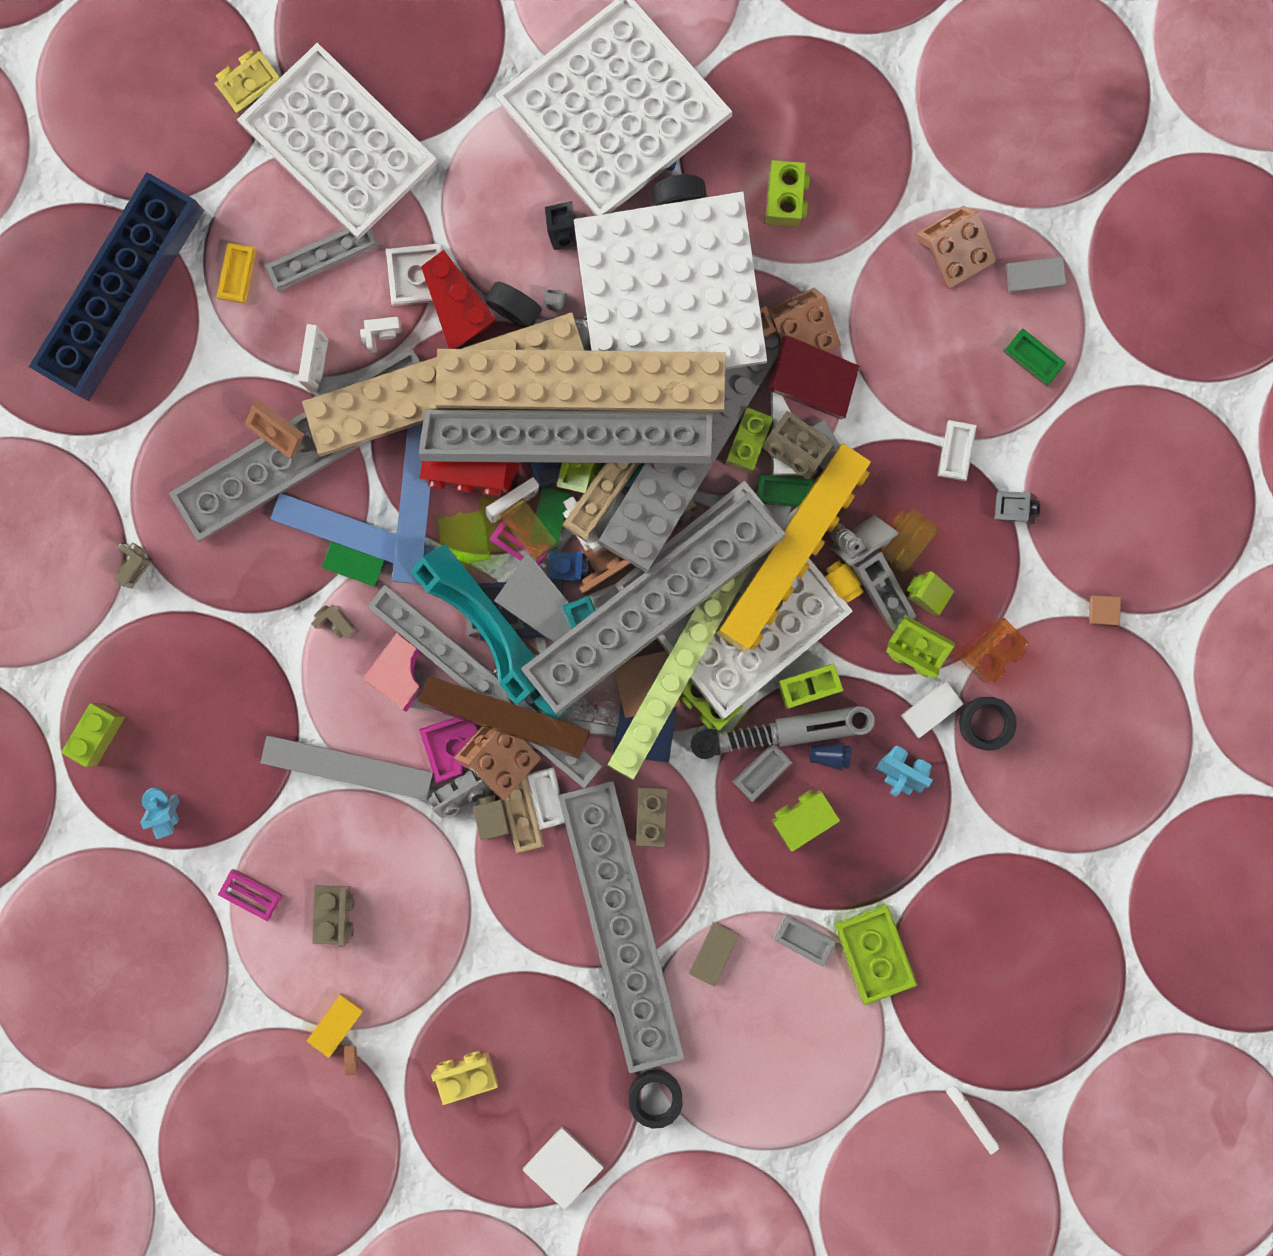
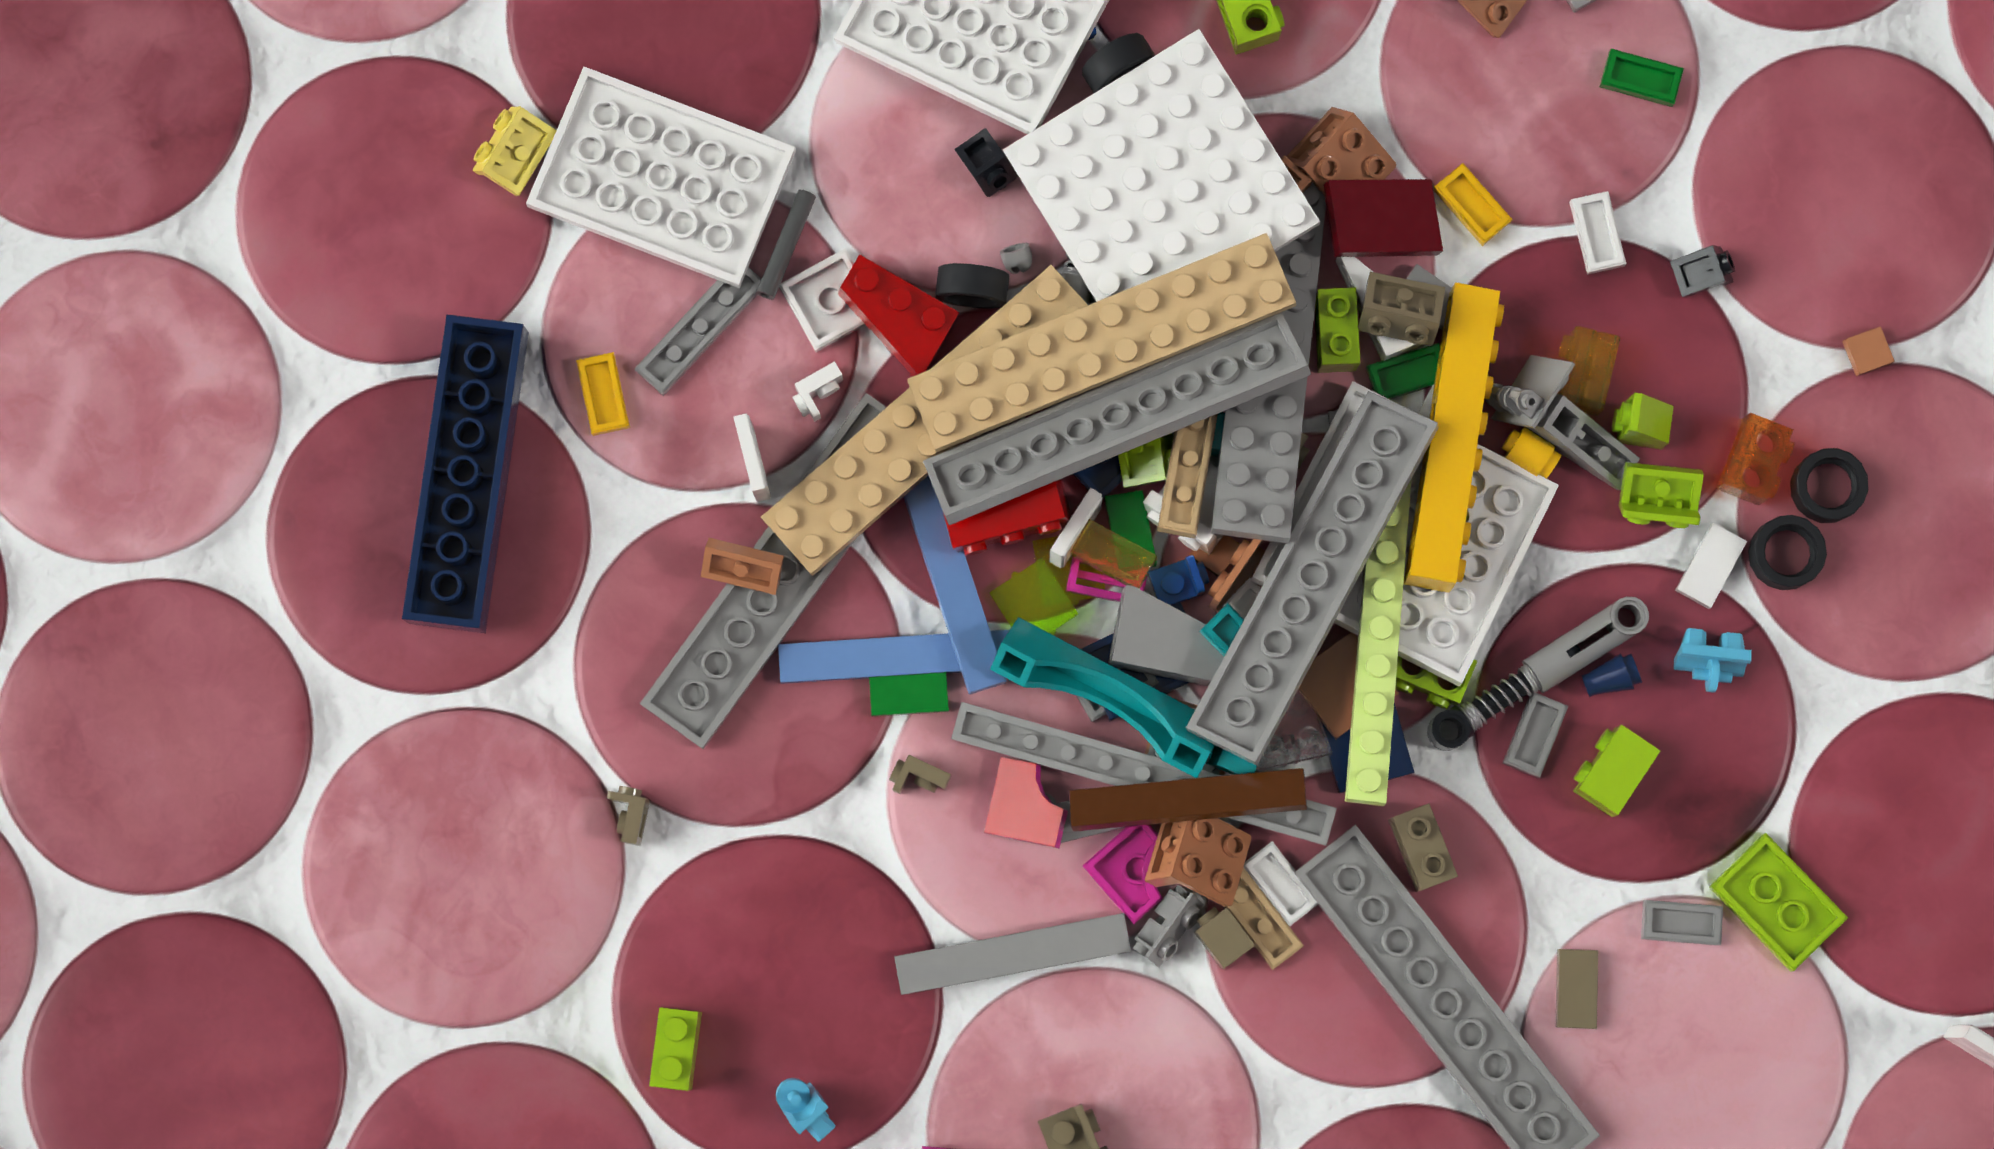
camera: 20 degrees left, 5 degrees down
(401, 224) = (786, 244): none -> dark grey piece
(810, 685) = (1547, 599): lime brick -> none
(880, 395) = (1472, 204): none -> yellow tile
(1056, 680) = (1847, 462): none -> black tyre

